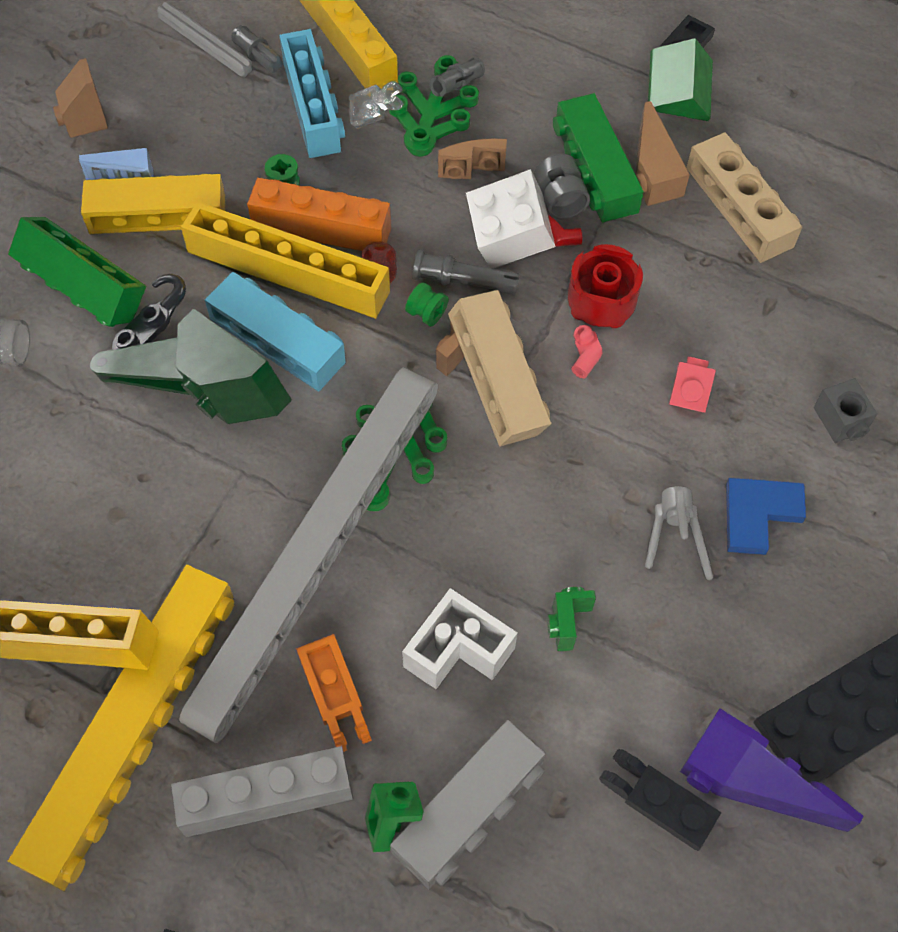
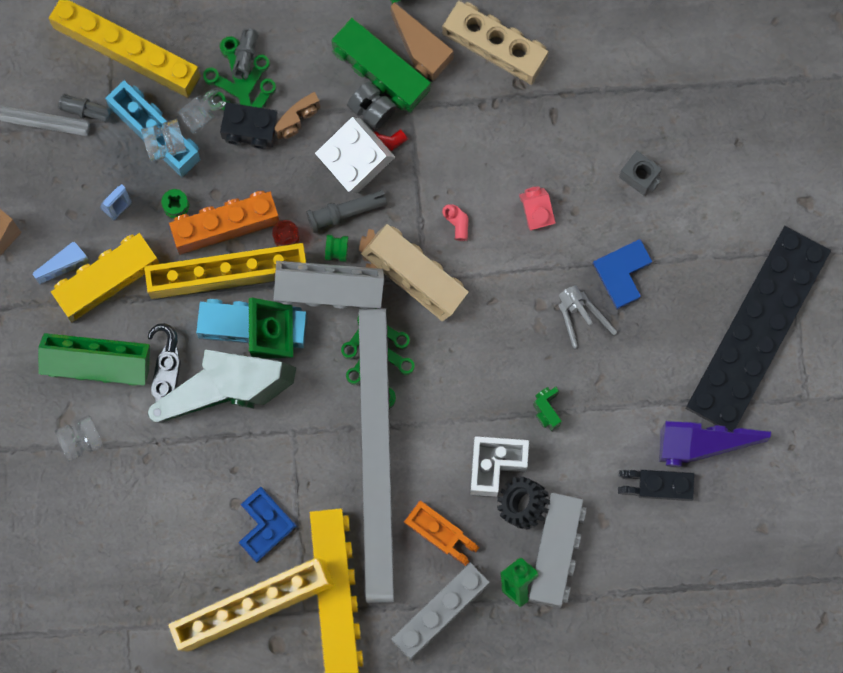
camera: 30 degrees left, 15 degrees up
(136, 565) = (271, 527): none -> blue tile
(219, 134) = (116, 202): none -> light blue slope
(284, 329) = (270, 329): none -> green slope
(303, 88) = (172, 136): none -> clear wheel
(385, 321) = (328, 285): none -> light grey brick
(412, 140) = (248, 125): none -> black bracket
(471, 726) = (535, 506): none -> black tyre
(604, 286) = (455, 160): red brick -> none

